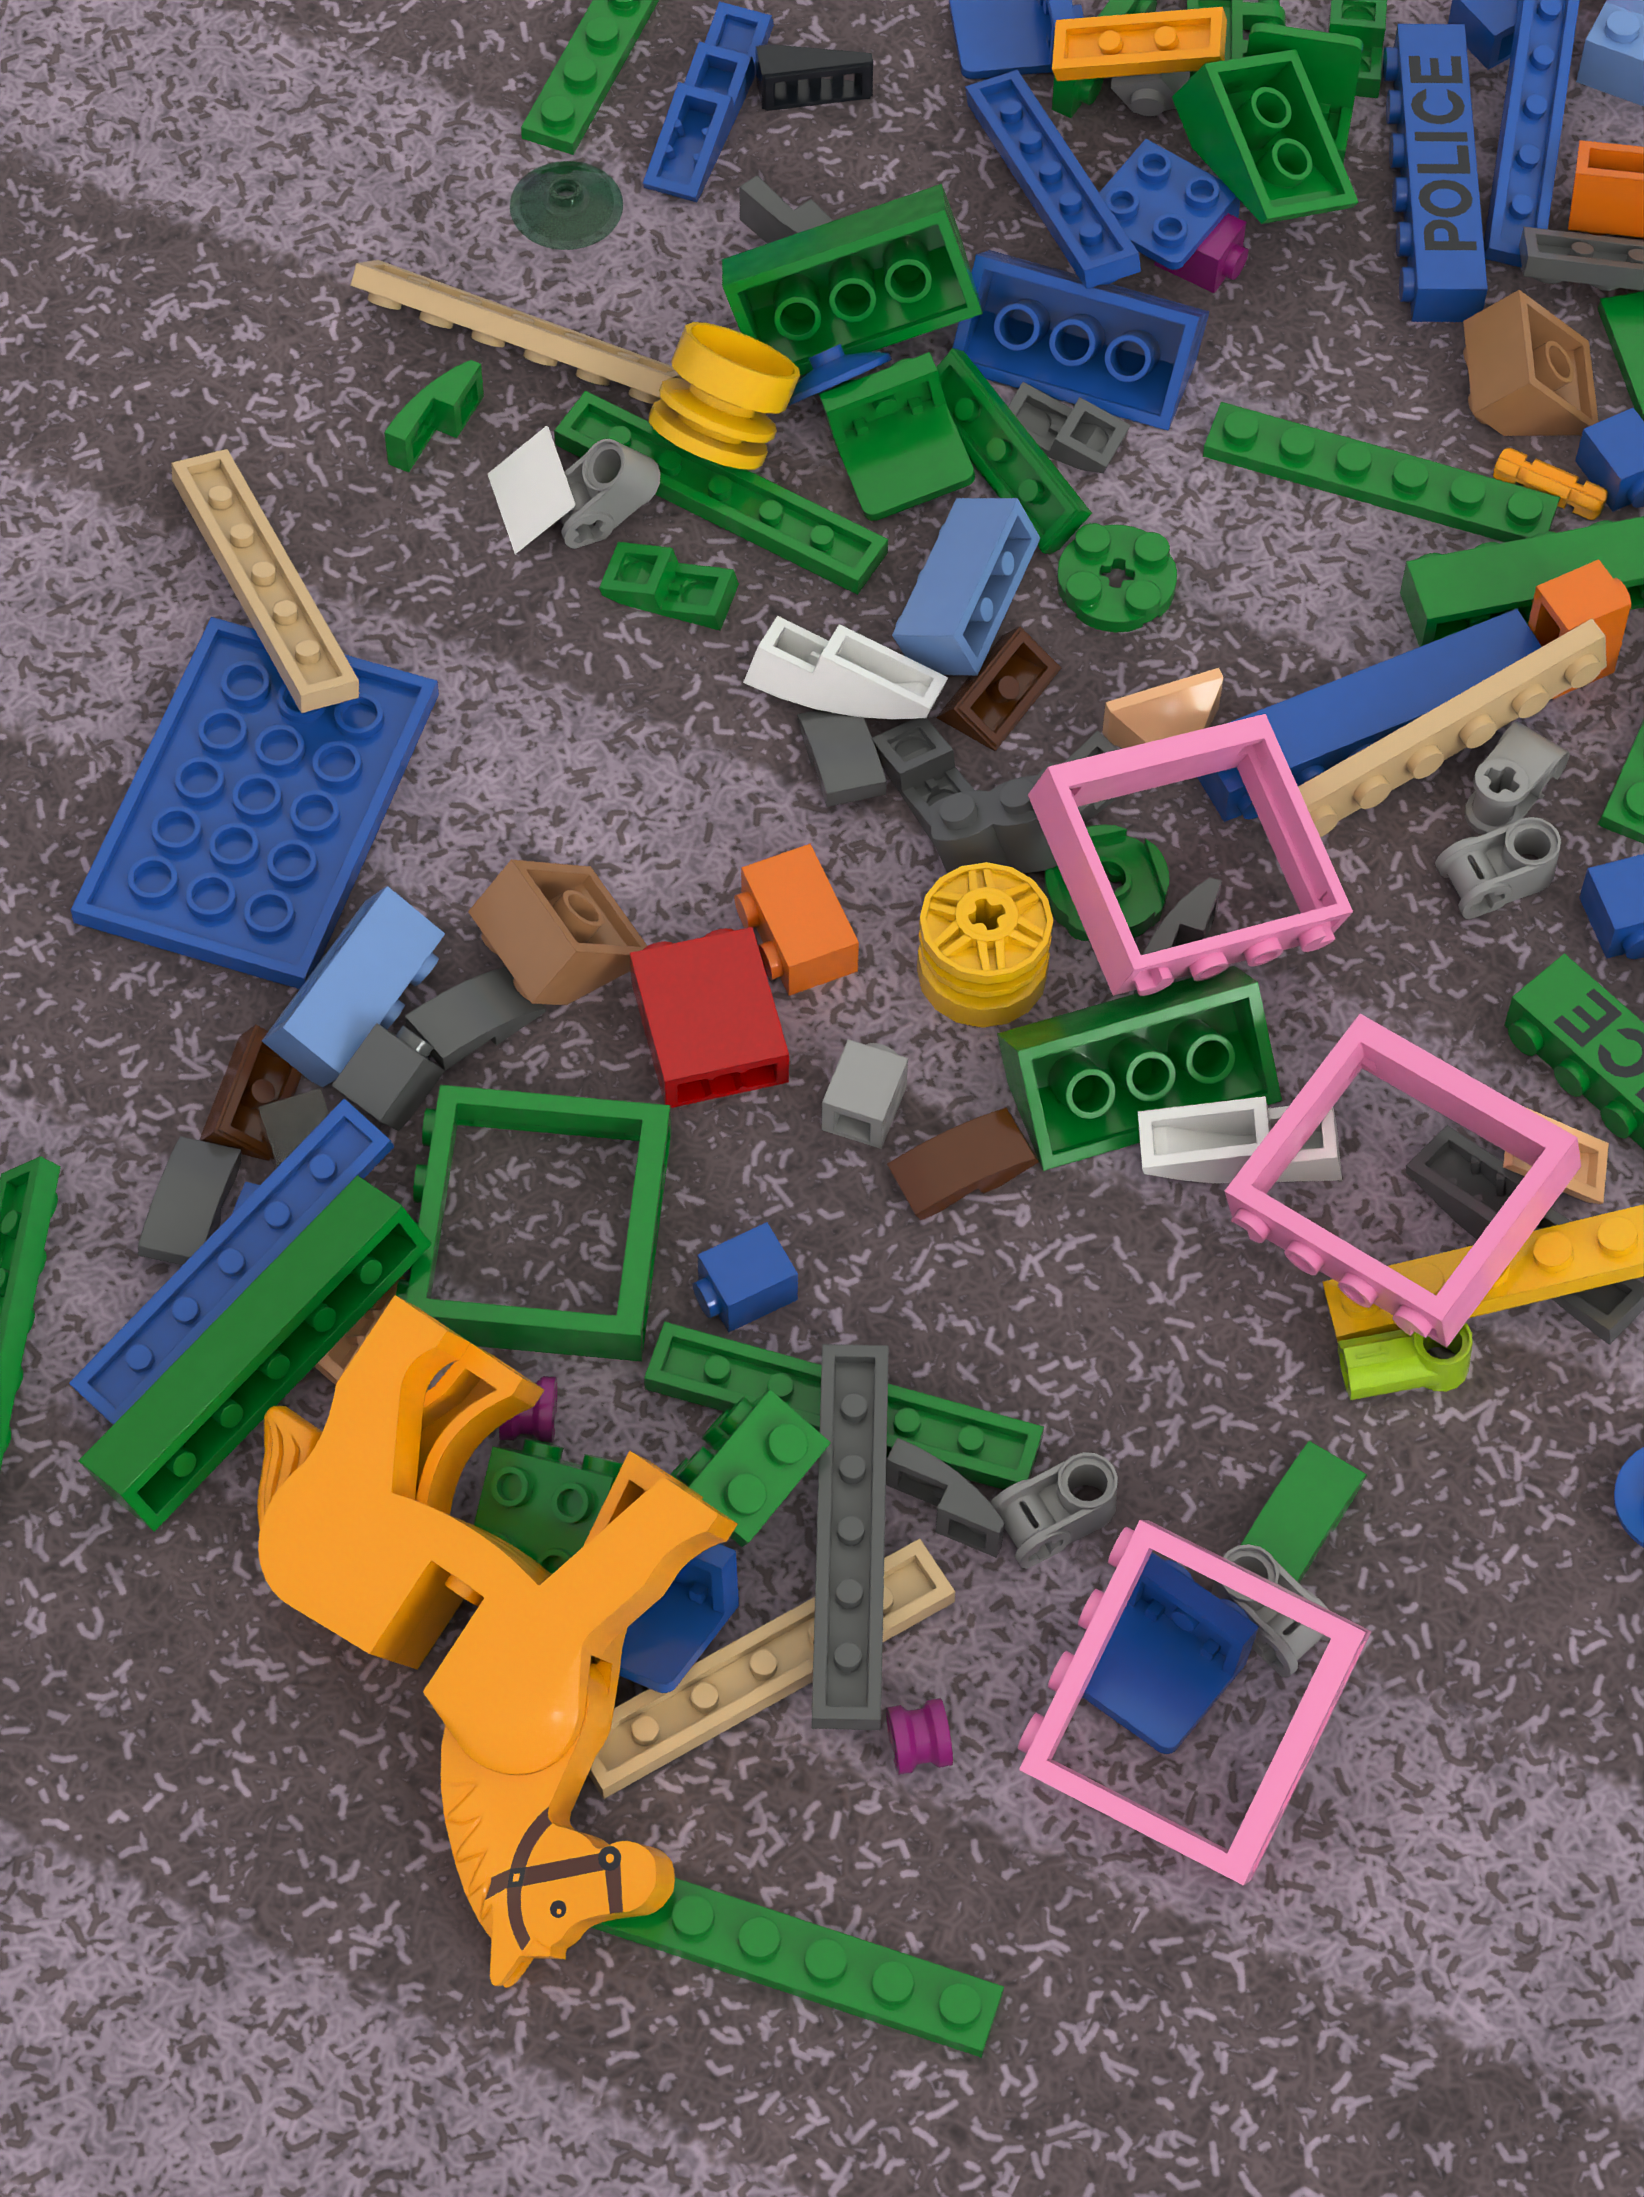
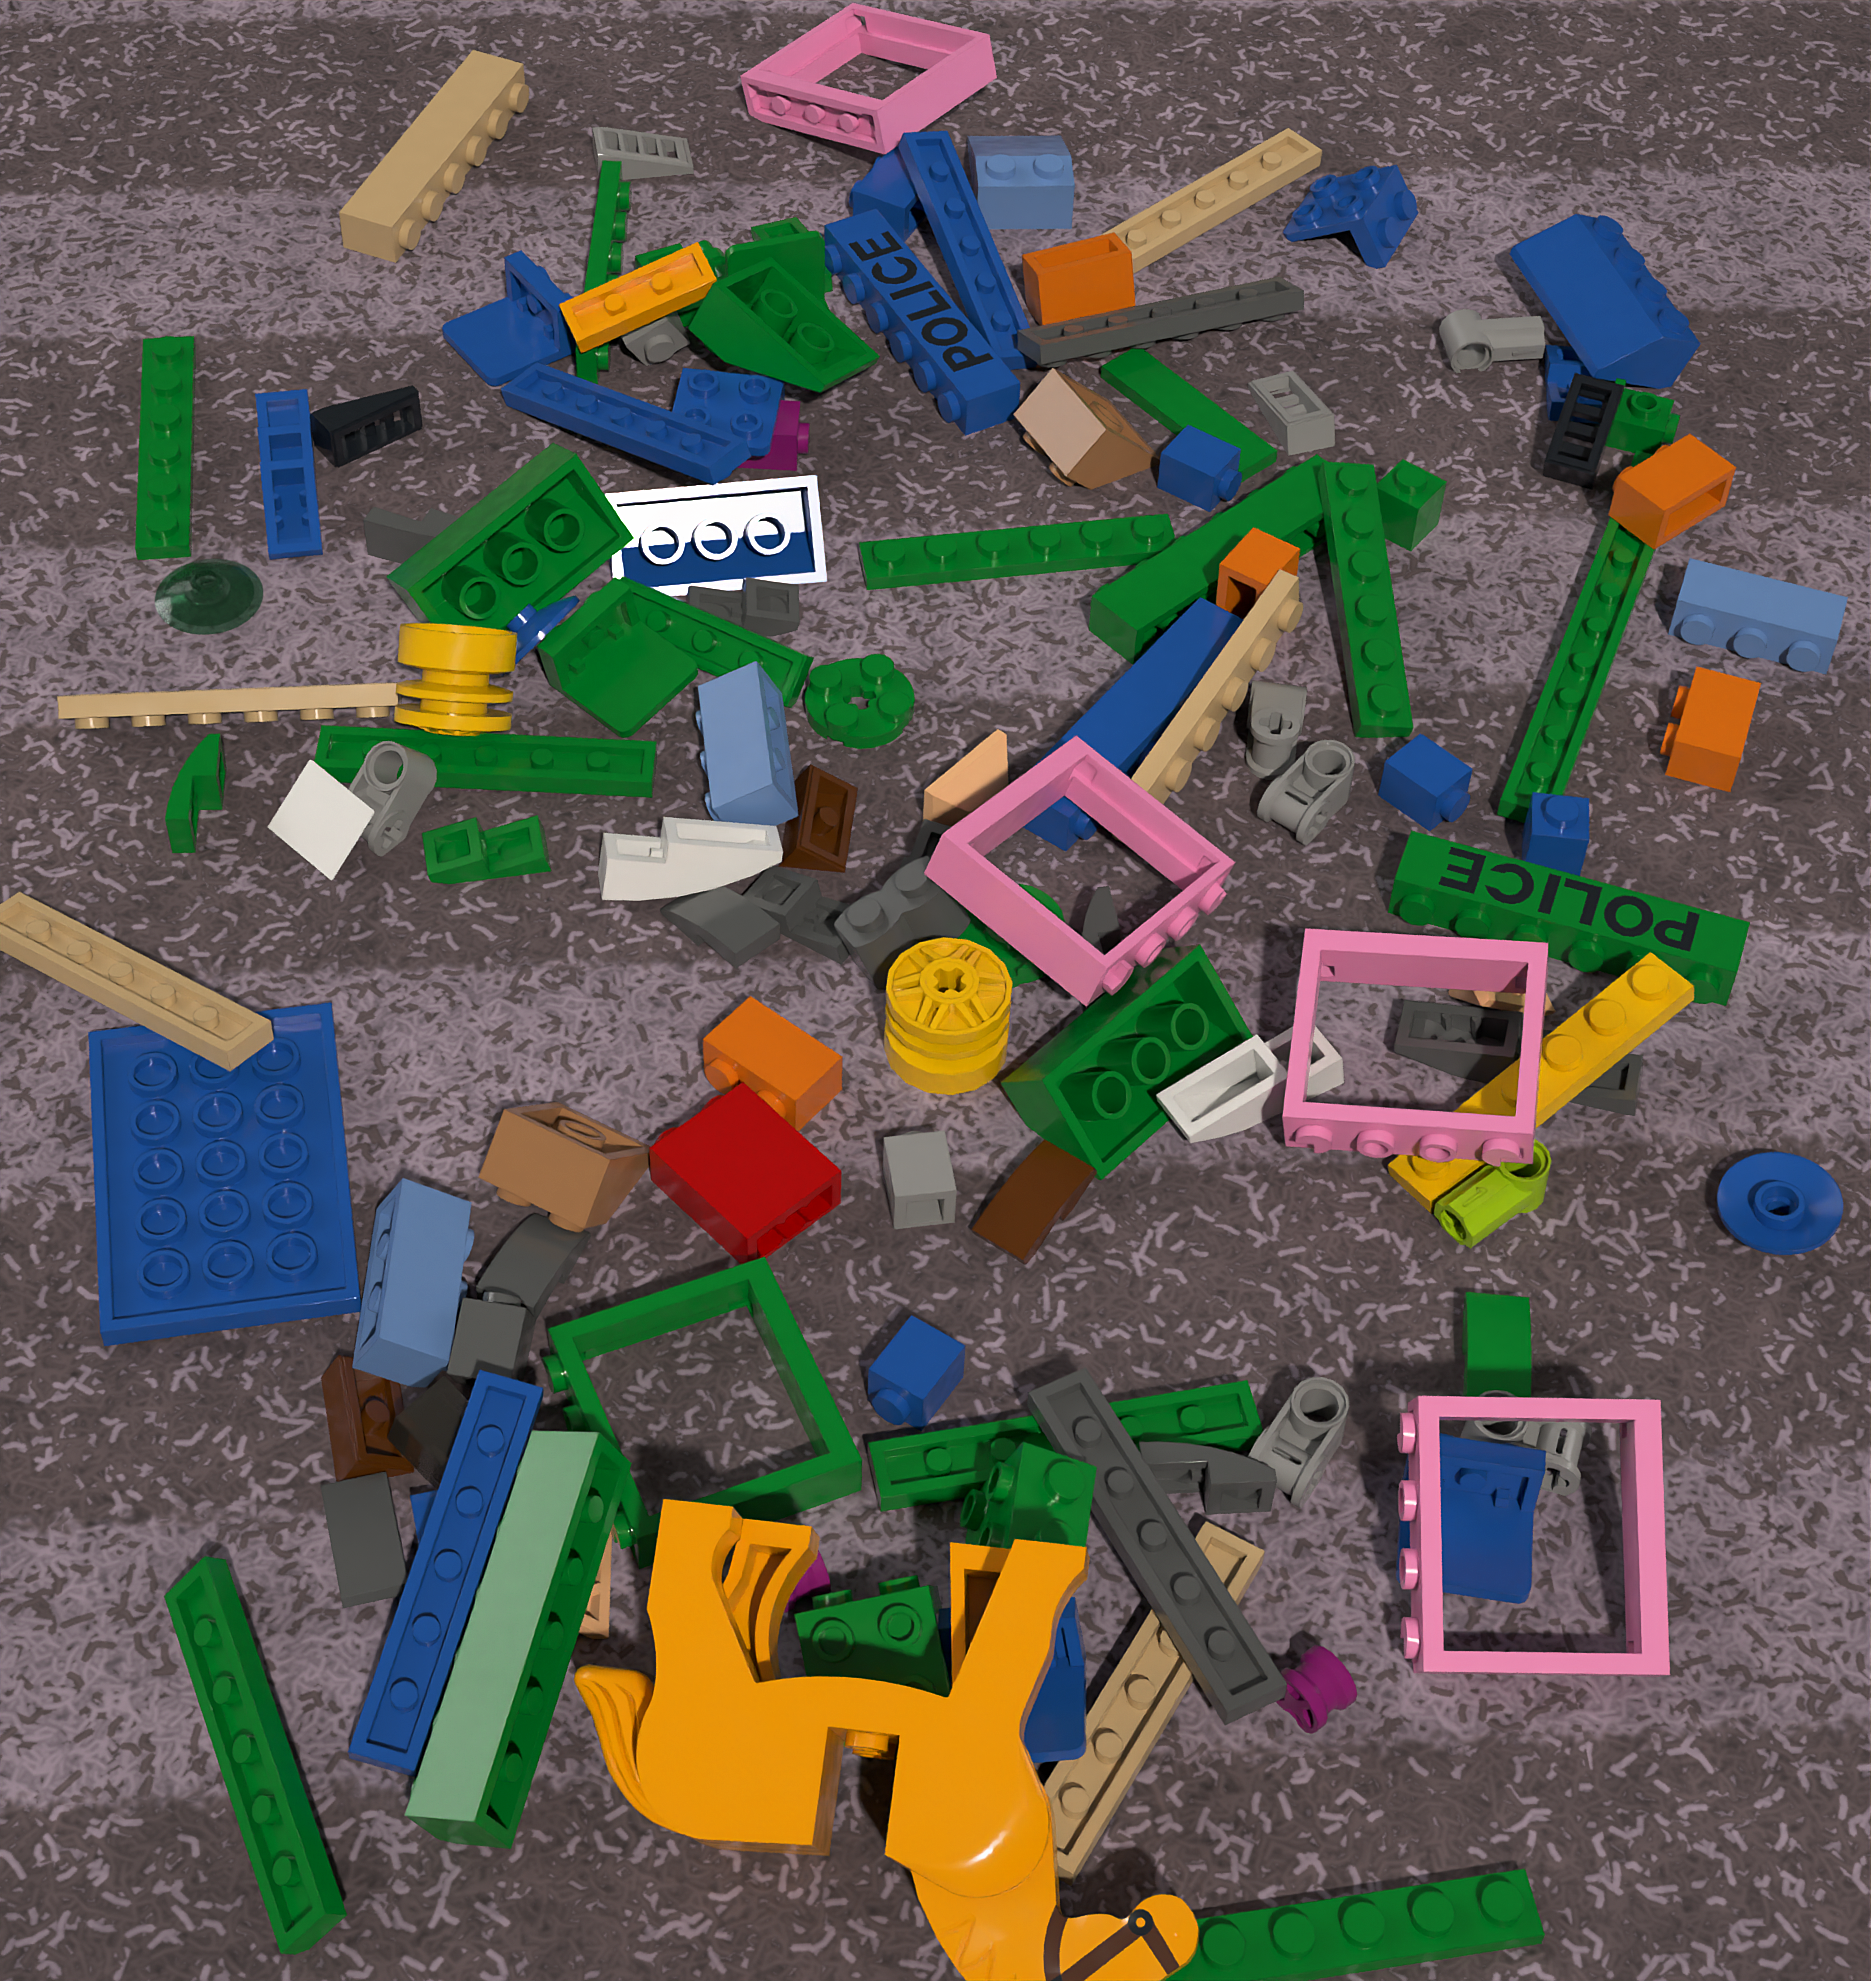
camera: 30 degrees left, 10 degrees down
(1540, 476) = (1186, 509): light orange axle -> none

